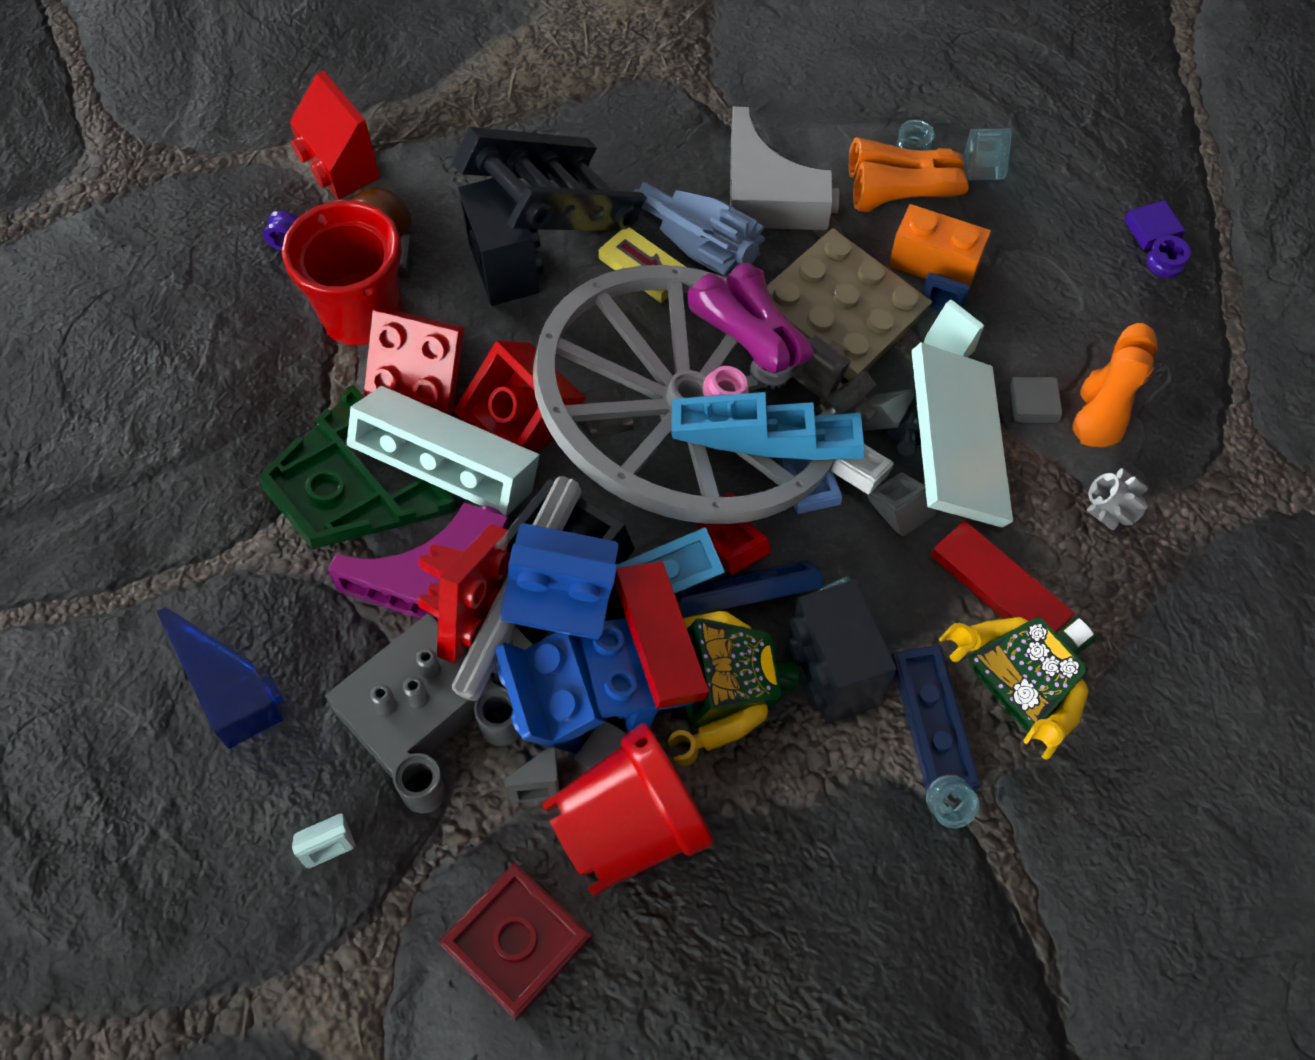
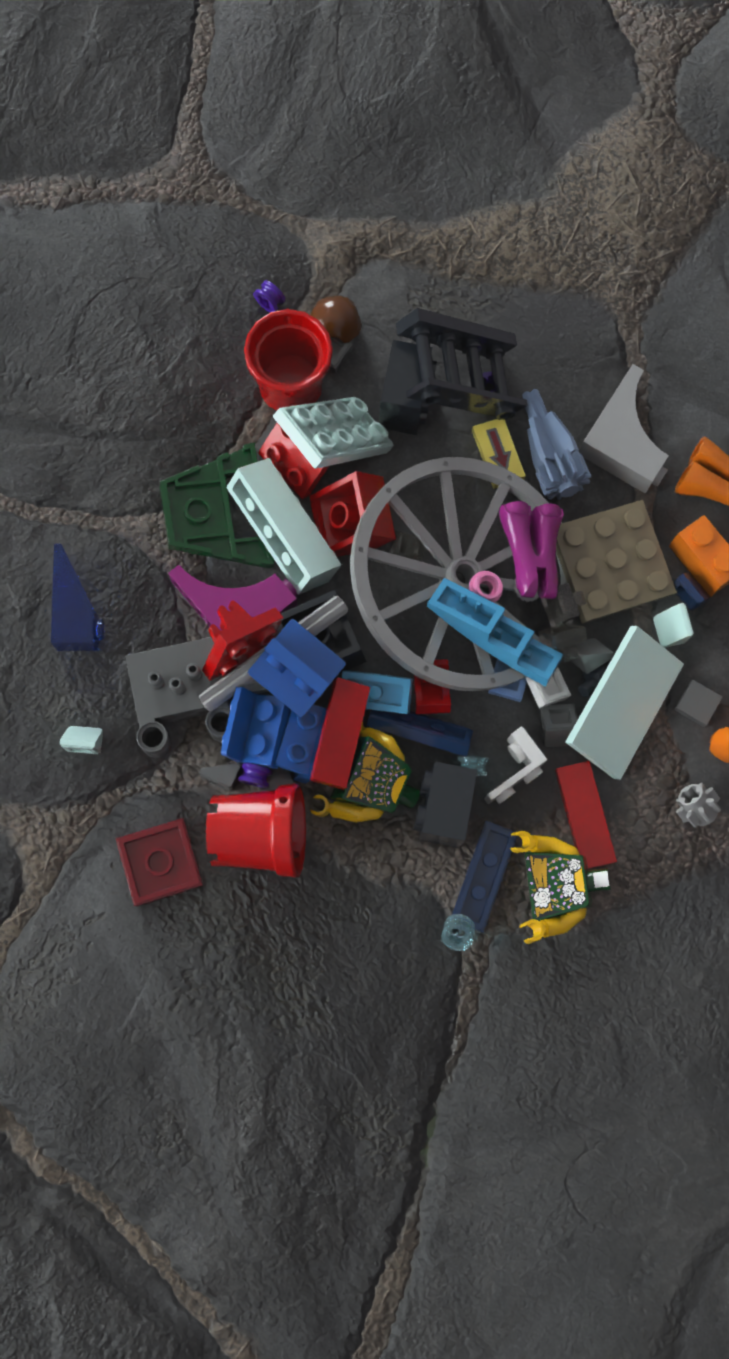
camera: 25 degrees right, 15 degrees up
(333, 139) = (337, 241): red slope -> none
(443, 309) = (334, 431): none -> light aqua tile
(580, 750) = (255, 775): none -> dark purple bush
(893, 548) = (521, 749): none -> white bracket

